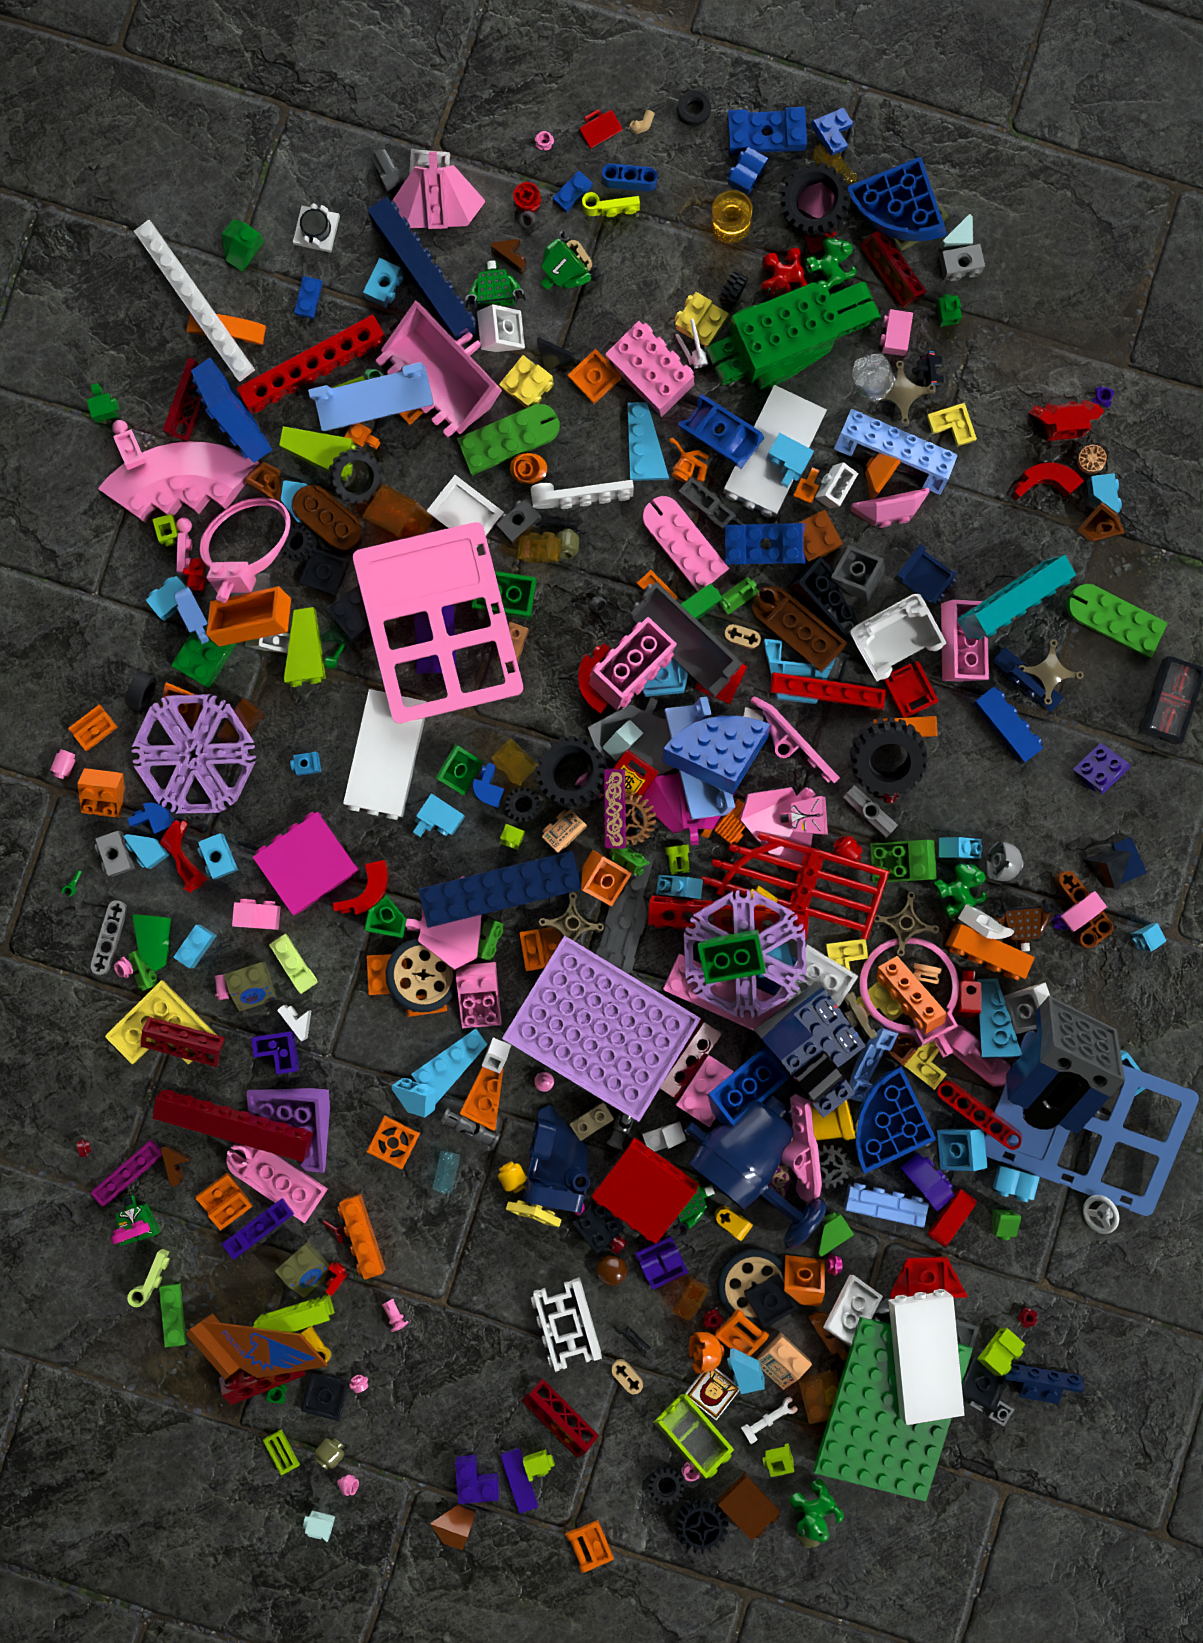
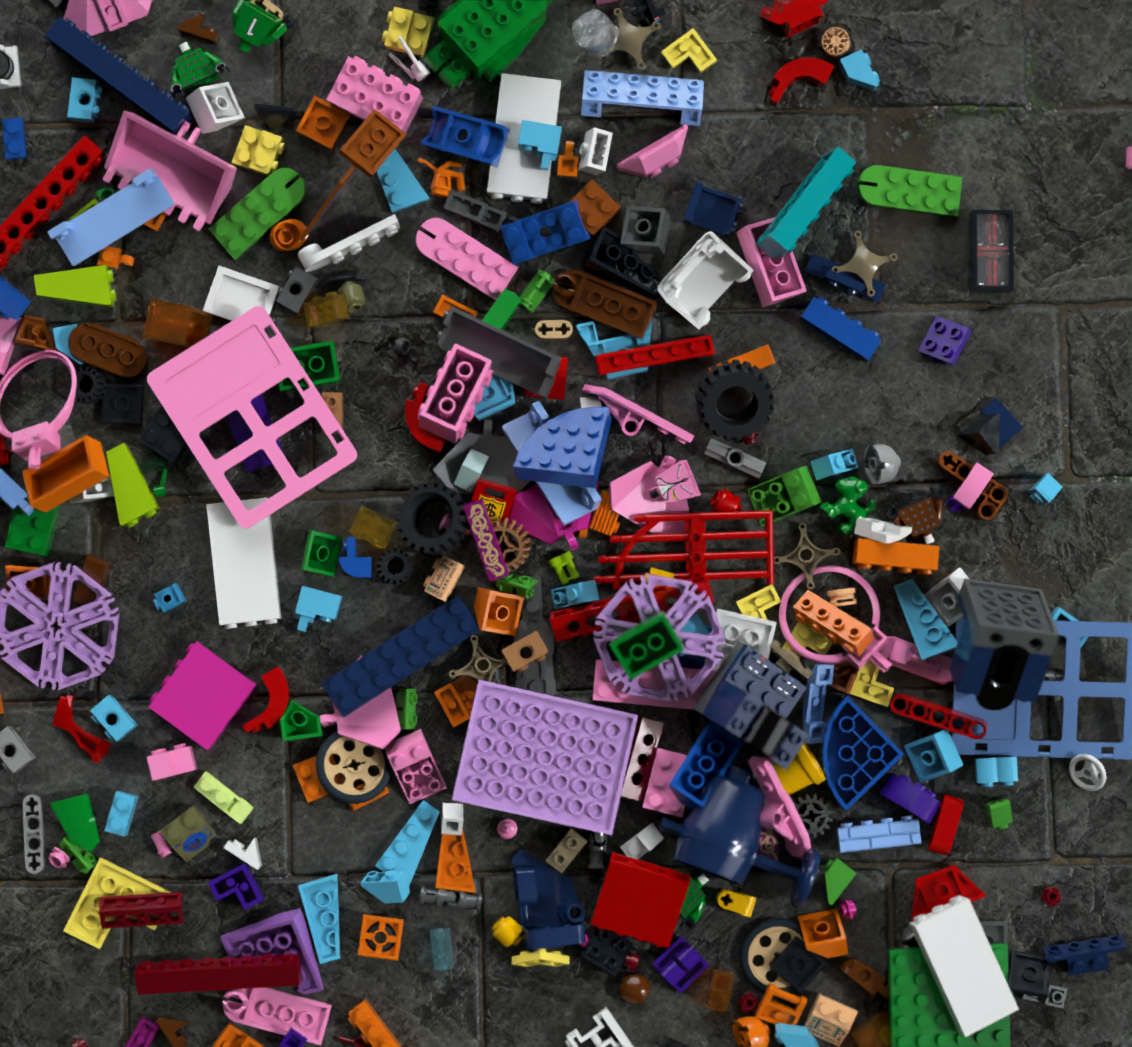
camera: 25 degrees left, 0 degrees up
(147, 849) = (42, 734): medium azure slope -> none
(159, 817) = (41, 698): blue brick -> none
(337, 468) = (102, 300): black tyre -> none
(348, 1098) = (322, 912): none -> medium azure wing
(512, 837) = (395, 601): lime brick -> none
(626, 412) = (367, 152): none -> dark orange piece
(627, 920) = (513, 656): none -> medium nougat brick
(854, 1301) = (877, 937): white tile -> none
(879, 472) = (633, 124): orange slope -> none
(909, 686) = (732, 323): red container -> none
(968, 1004) = (890, 613): red torso -> none
(1001, 1351) = (1035, 937): lime brick -> none
(1101, 524) = (865, 103): dark orange slope -> none

